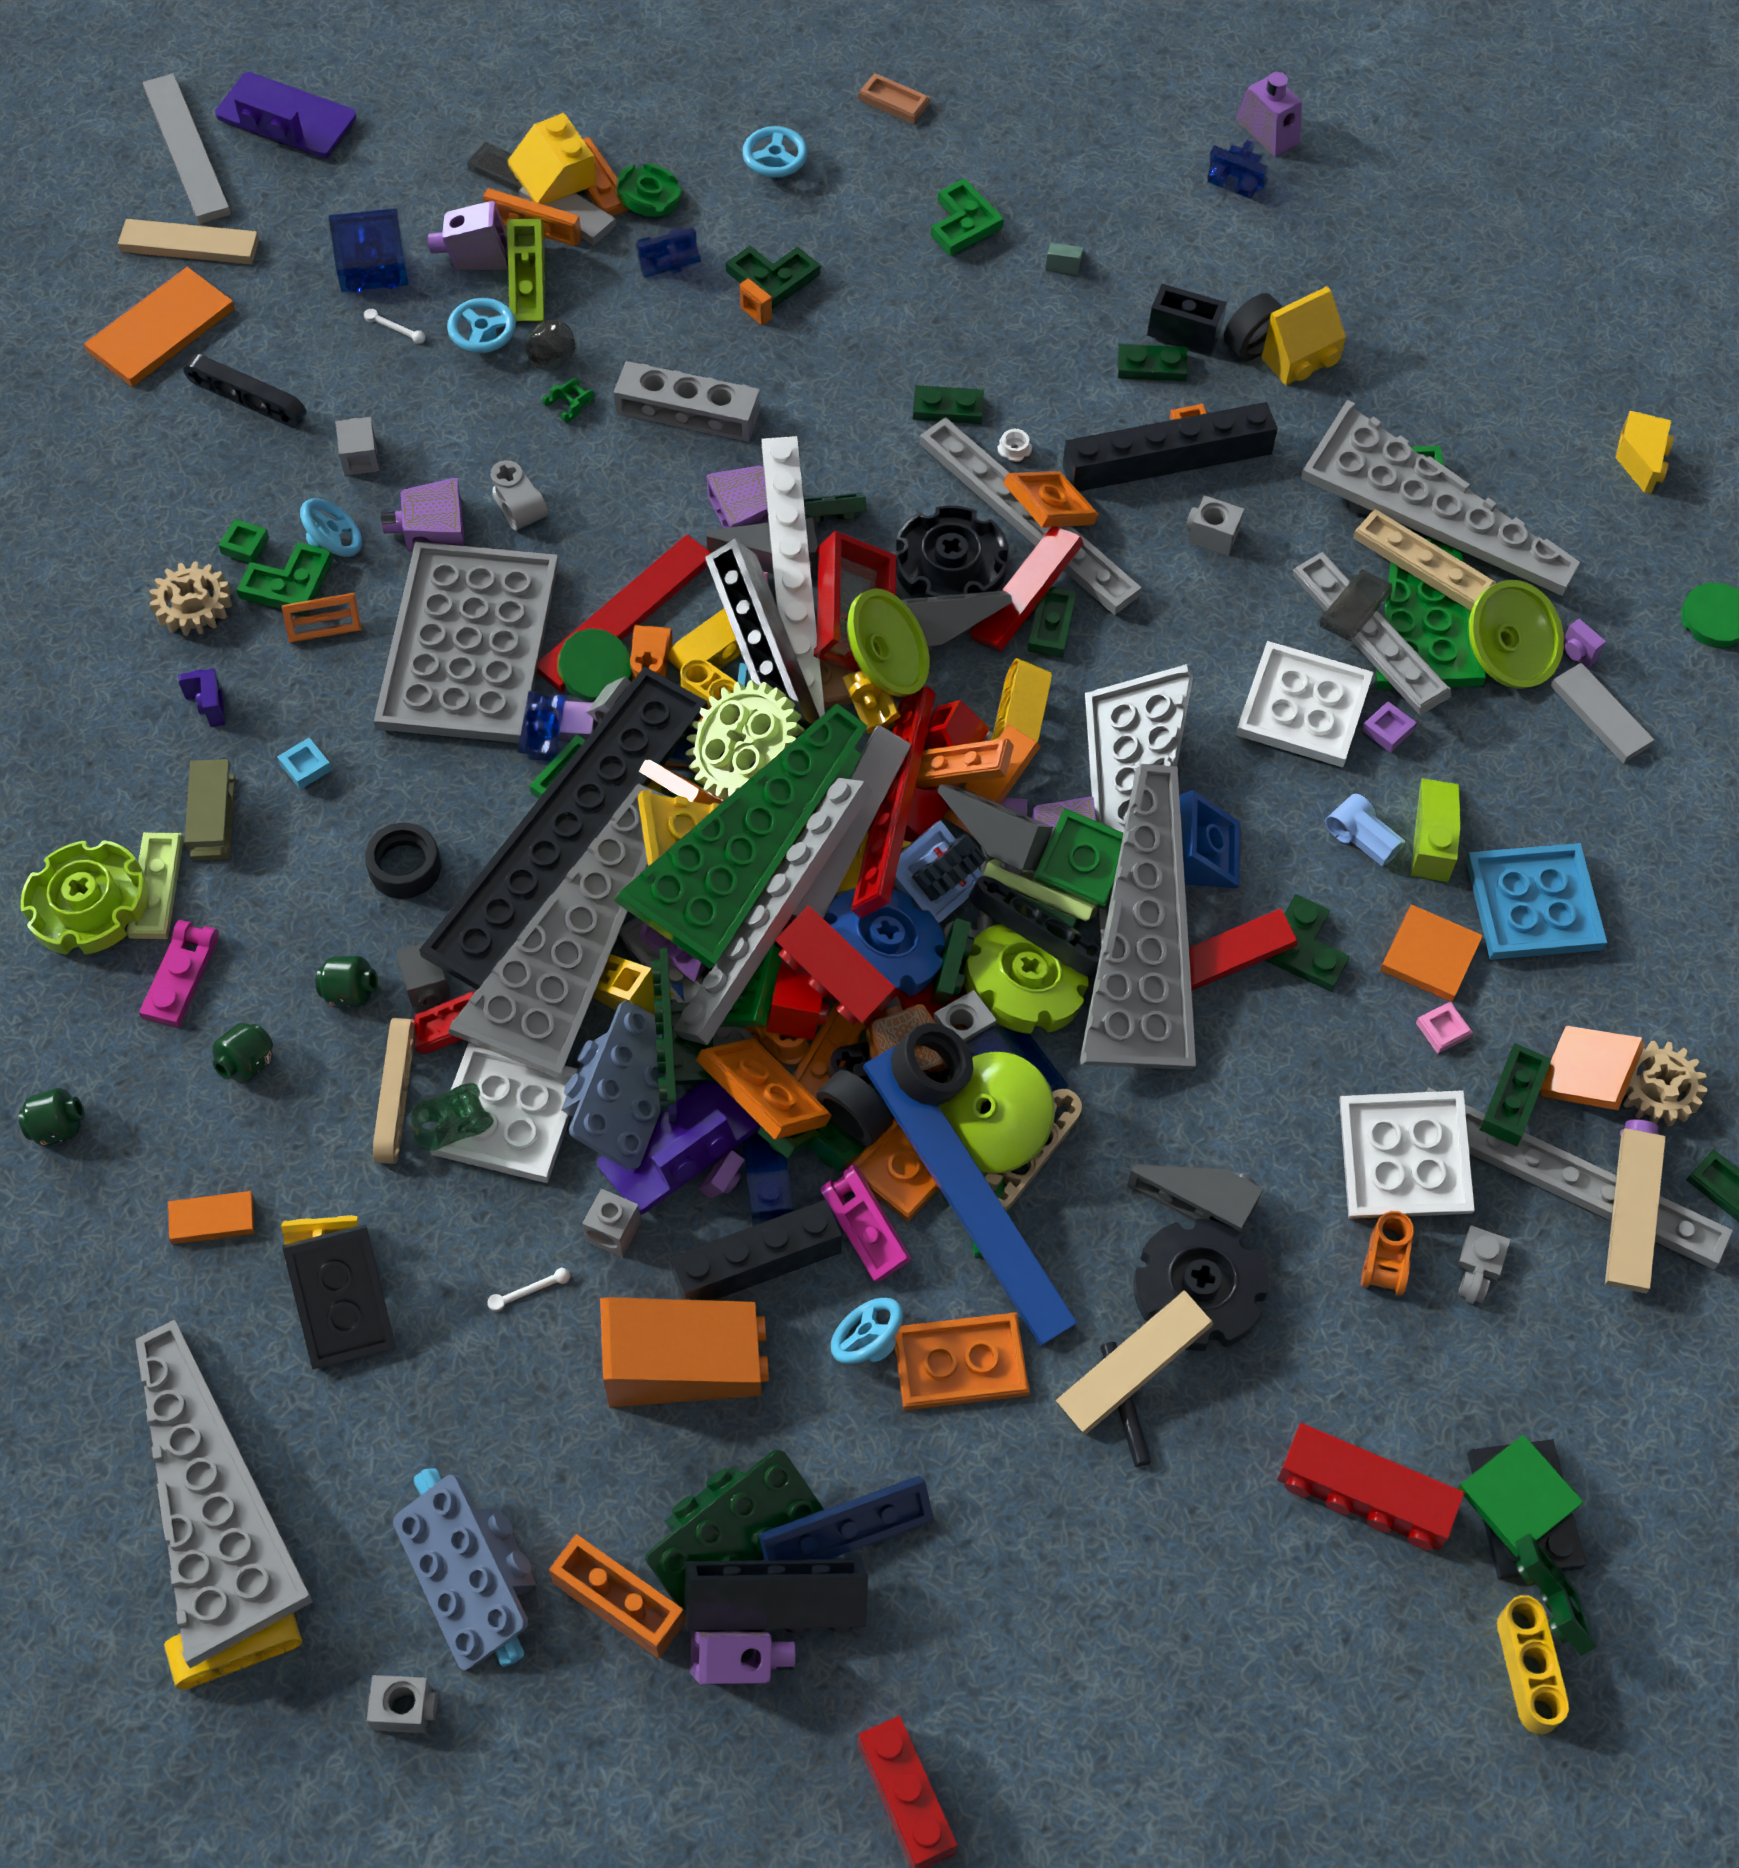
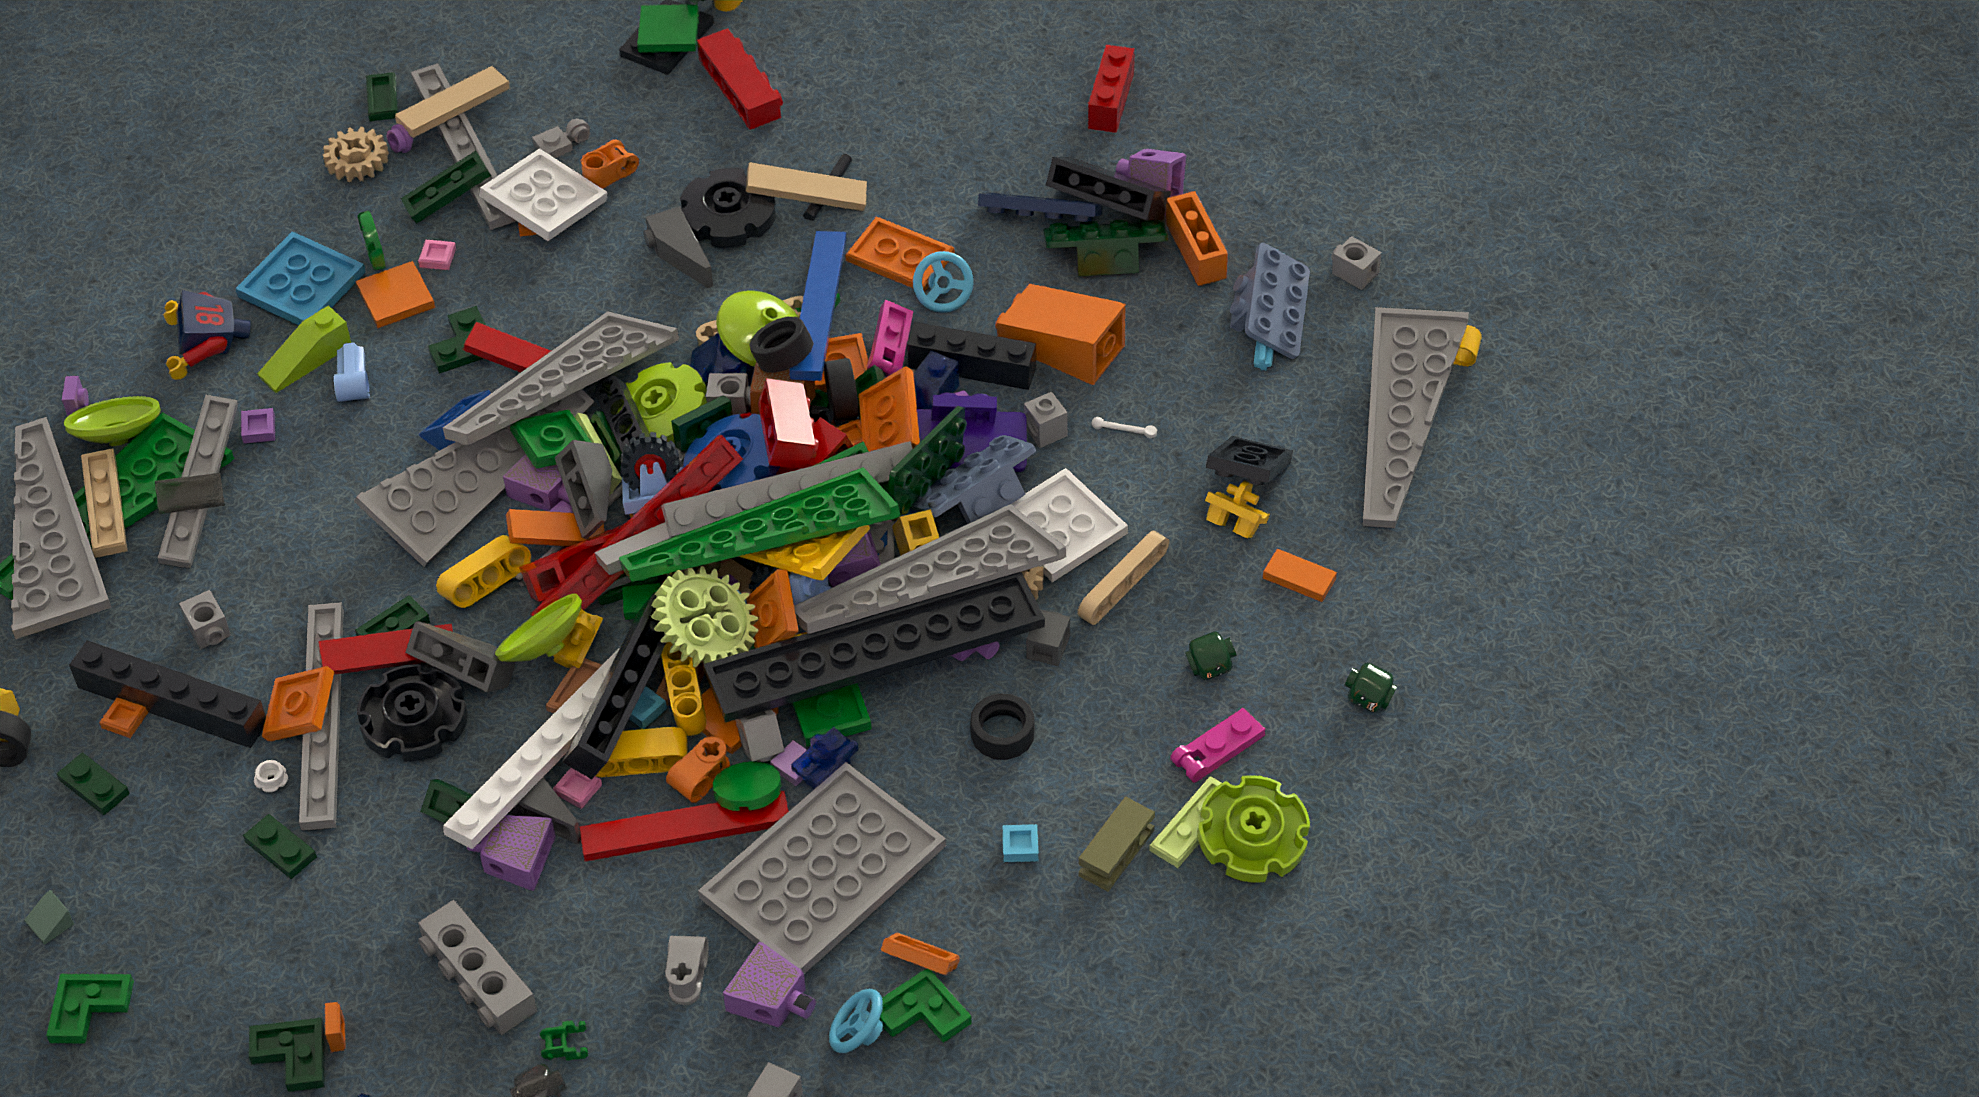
camera: 140 degrees left, 10 degrees down
(190, 598) = (1005, 1046): tan gear -> none
(208, 693) = (1054, 941): dark purple bracket -> none
(243, 541) = (932, 1066): green plate -> none
(346, 981) = (1105, 661): dark green head -> none
(434, 1024) = (1055, 590): red plate -> none
(452, 1115) = (1105, 520): clear green piece -> none
(844, 572) = (520, 704): red door -> none
(964, 763) = (567, 524): orange tile -> none
(1186, 318) = (35, 782): black brick -> none
(1304, 704) = (292, 471): white plate -> none
(1507, 969) = (371, 240): none -> green tile
(1556, 781) = (203, 329): none -> torso
(1592, 1067) = (383, 177): tile -> none
(1602, 713) = (115, 360): light grey tile -> none

